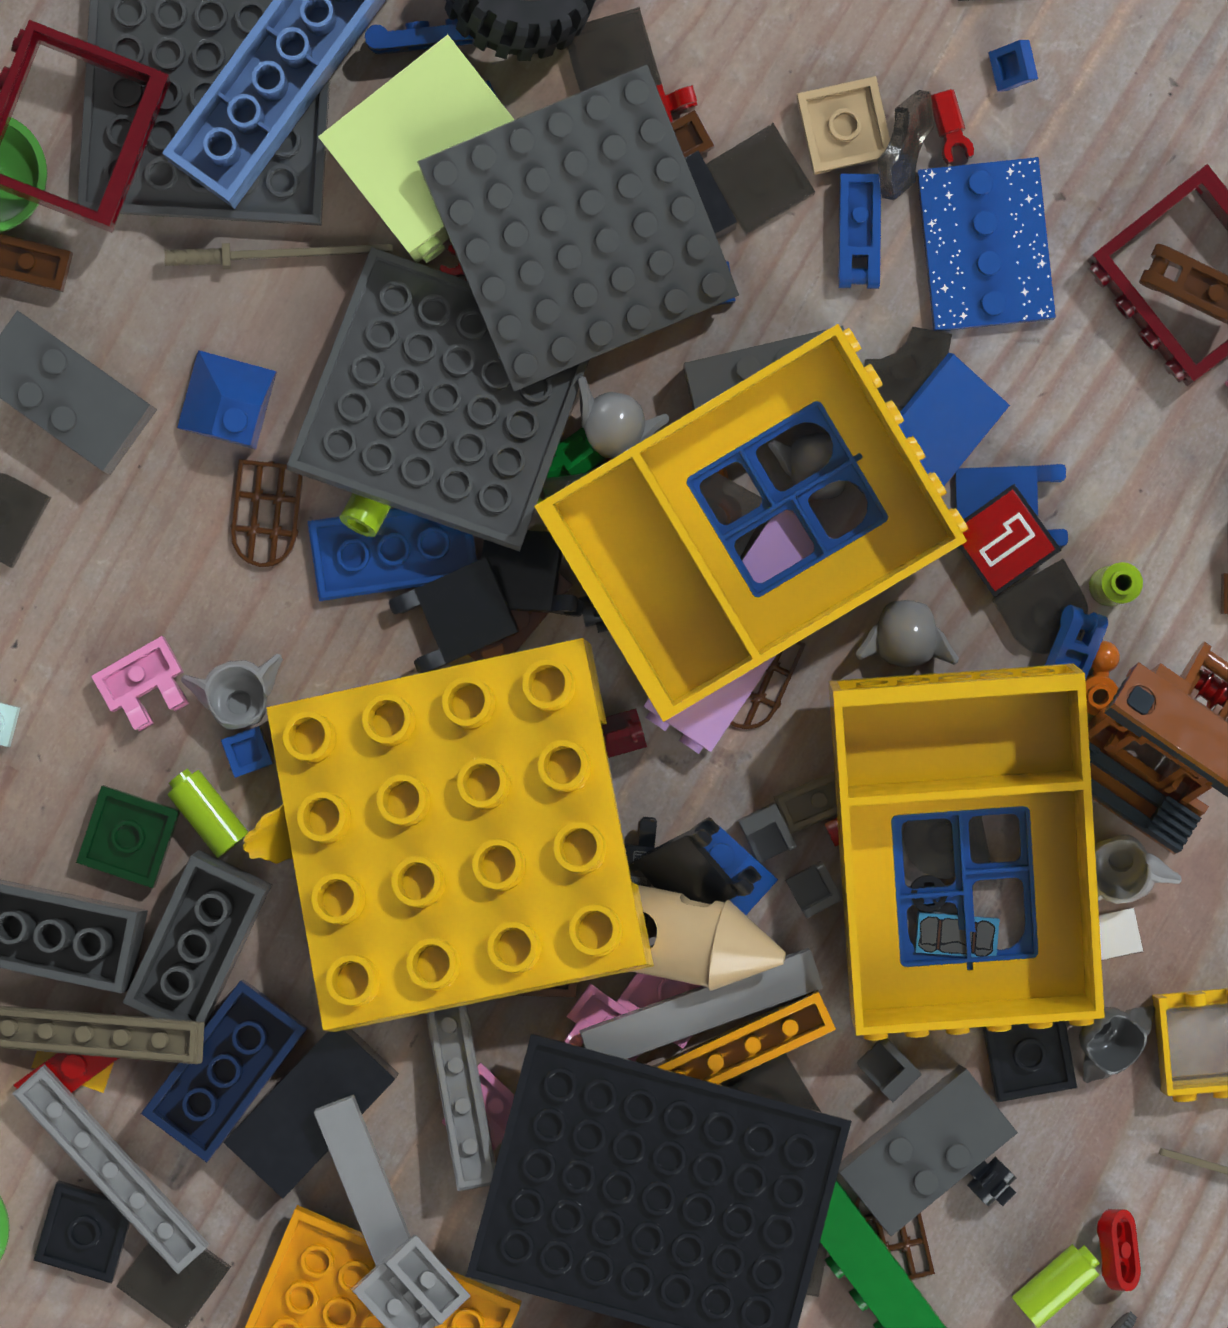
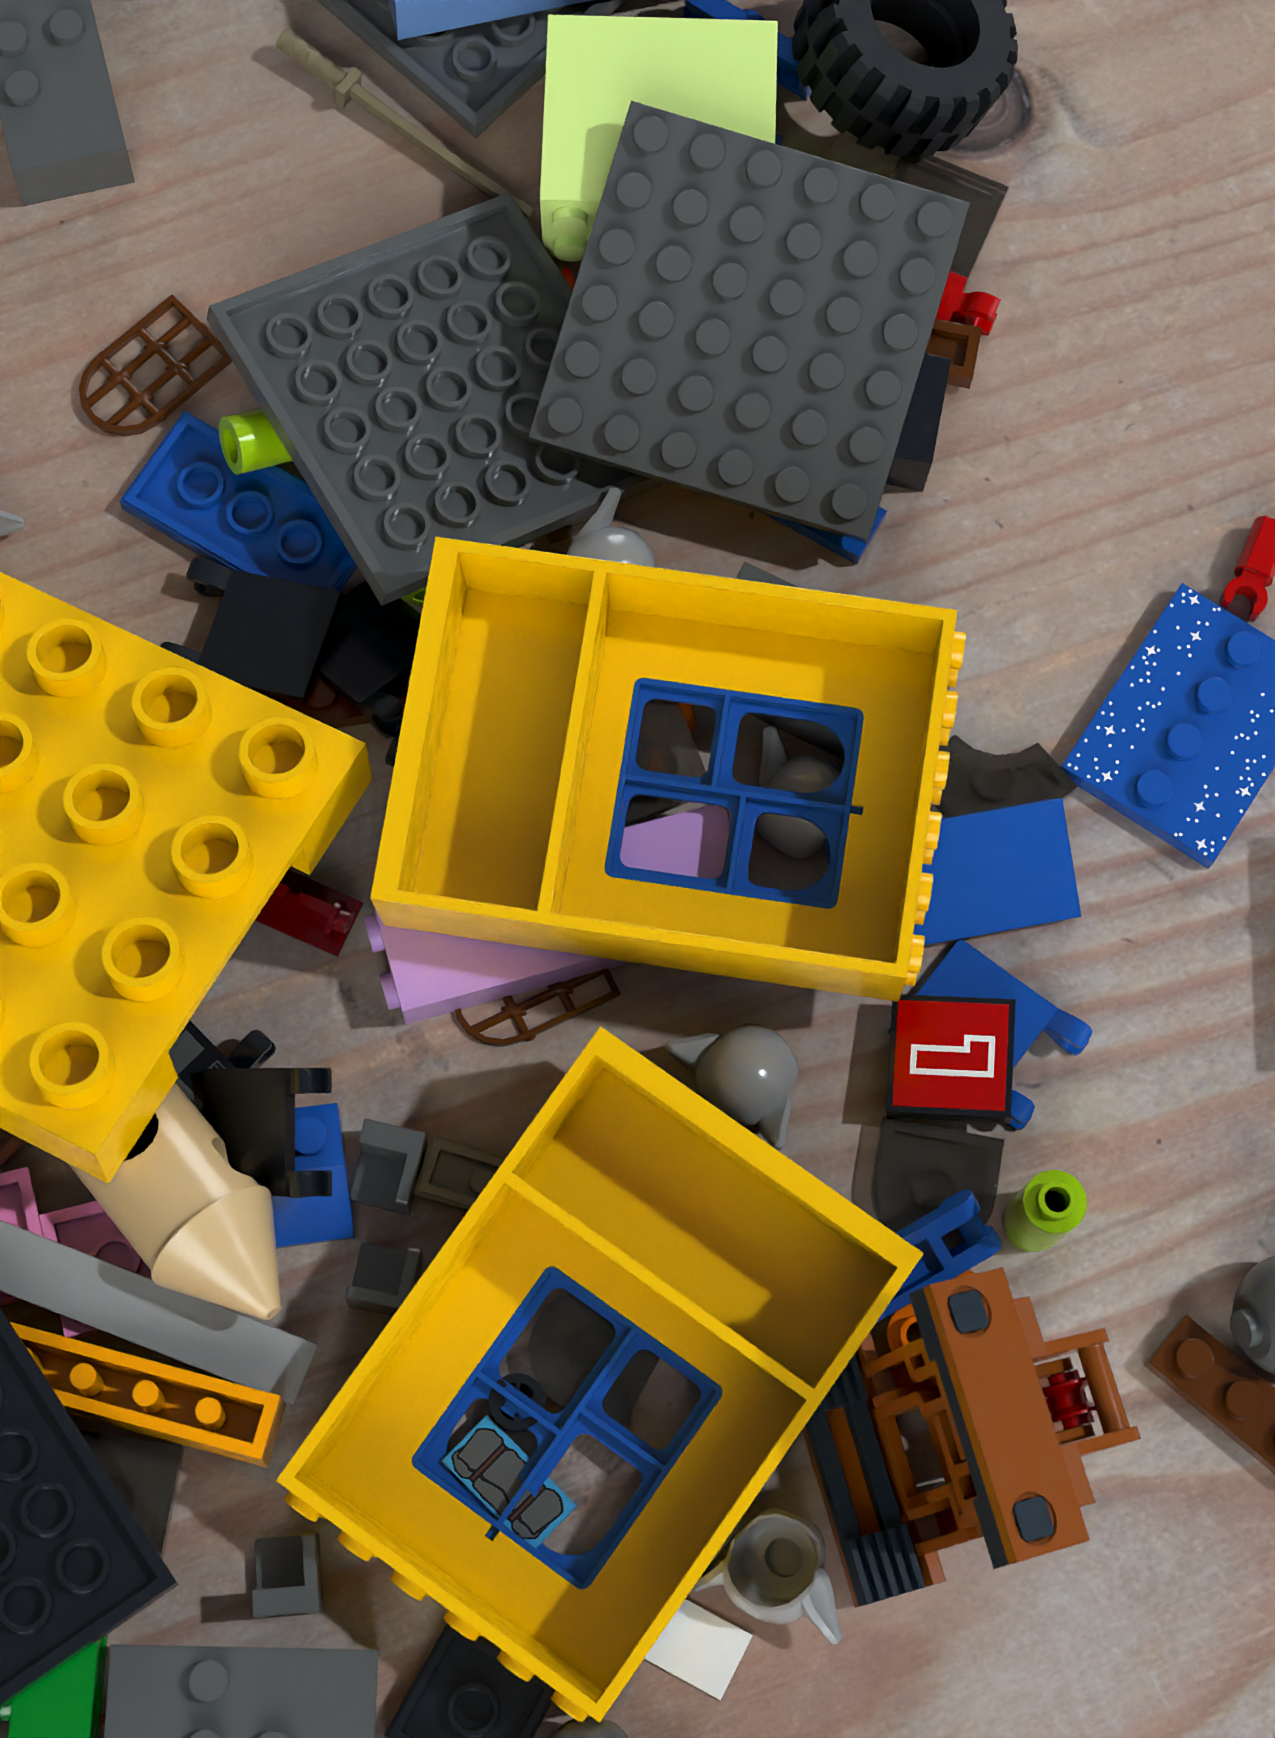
camera: 35 degrees right, 15 degrees down
(227, 399) = (216, 228): blue slope -> none
(760, 179) = (993, 459): clear smoke tile -> none
(843, 125) = (1136, 474): tan plate -> none
(859, 229) = (1063, 593): blue plate -> none
(900, 158) = (1173, 549): clear smoke tile -> none

